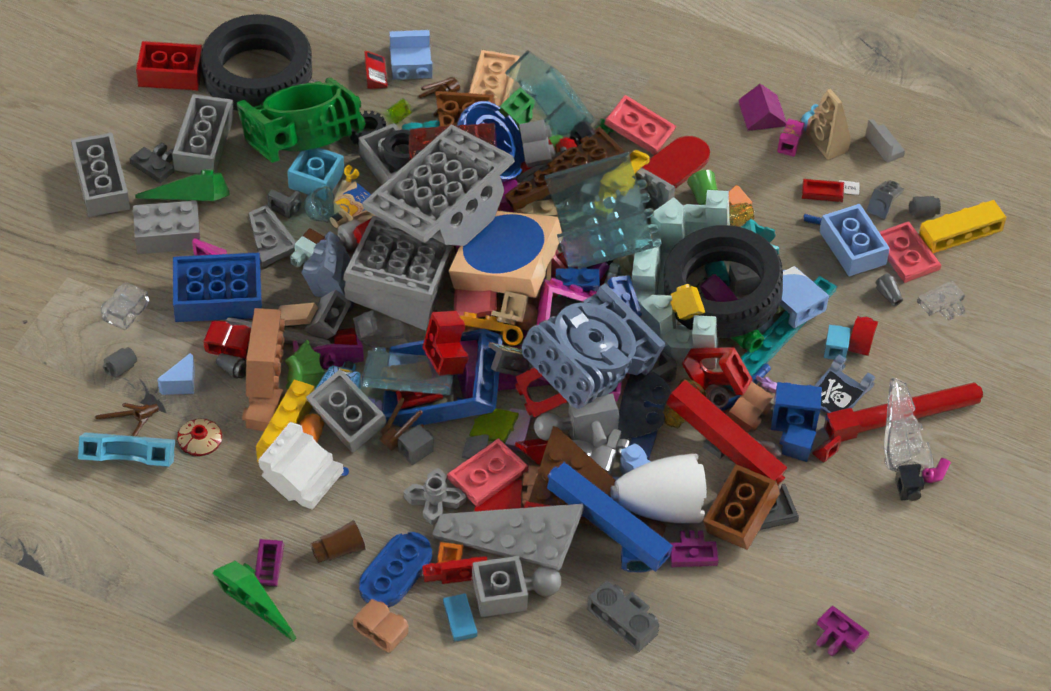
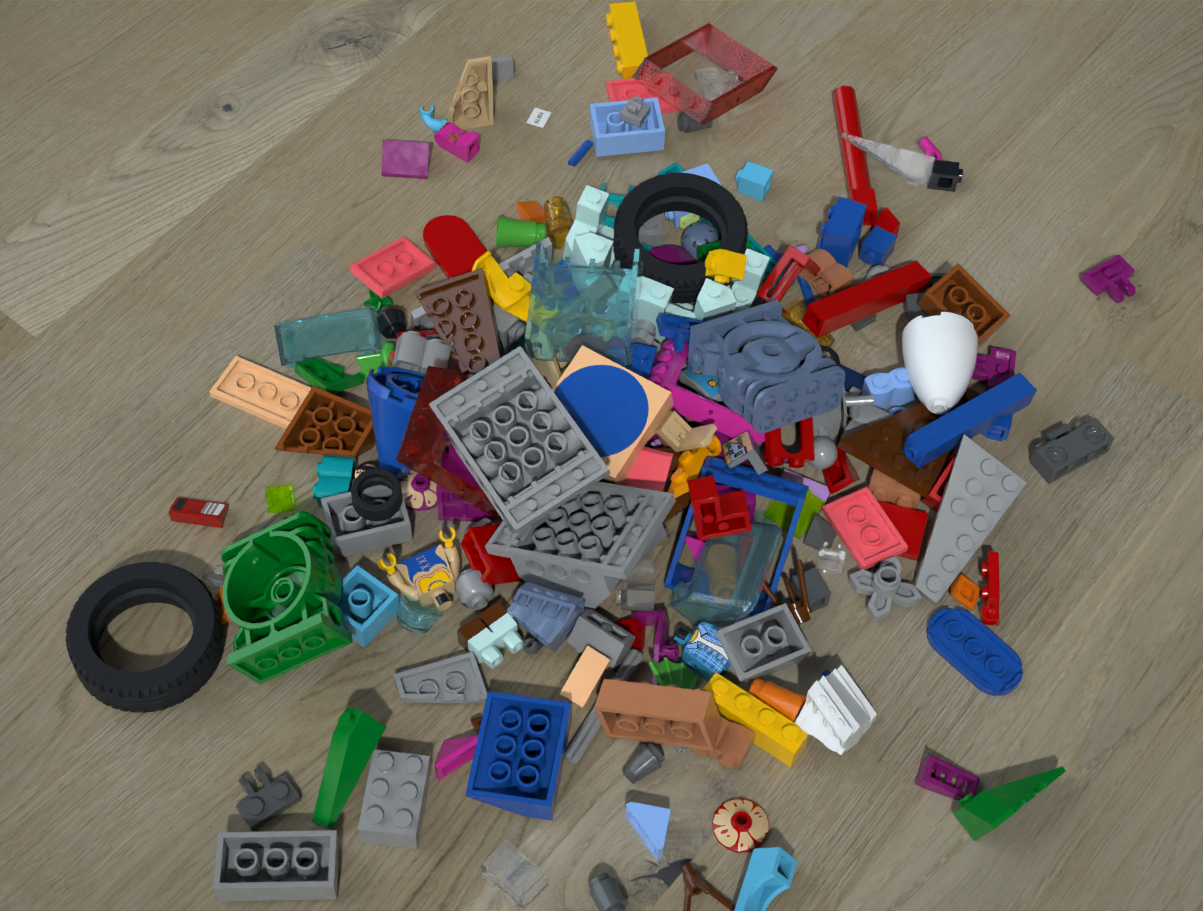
camera: 75 degrees left, 5 degrees up
(169, 65) = (104, 743): red brick -> none
(203, 134) = (249, 724): light grey brick -> none
(227, 339) = (604, 759): red brick -> none
(282, 204) = (396, 657): dark grey bracket -> none
(338, 543) = (938, 697): reddish brown plant -> none
(381, 625) = (1055, 678): nougat brick -> none
(410, 54) = (190, 468): light blue panel -> none
(448, 85) = (262, 440): reddish brown plant -> none
(450, 454) = (830, 559): none -> clear tile
(460, 617) = (1048, 601): dark azure tile -> none
(503, 588) = (1025, 544): light grey brick -> none
(717, 395) = (808, 294): dark grey cone -> none
(823, 190) = (539, 138): red tile -> none
(839, 389) = (810, 199): flag -> none
(860, 233) = (635, 111): none -> light grey tile
(862, 335) = (751, 151): red brick -> none
(883, 198) = (575, 88): dark grey bracket -> none
(924, 206) = (592, 62): dark grey brick -> none
(983, 302) = (720, 50): none -> clear red window

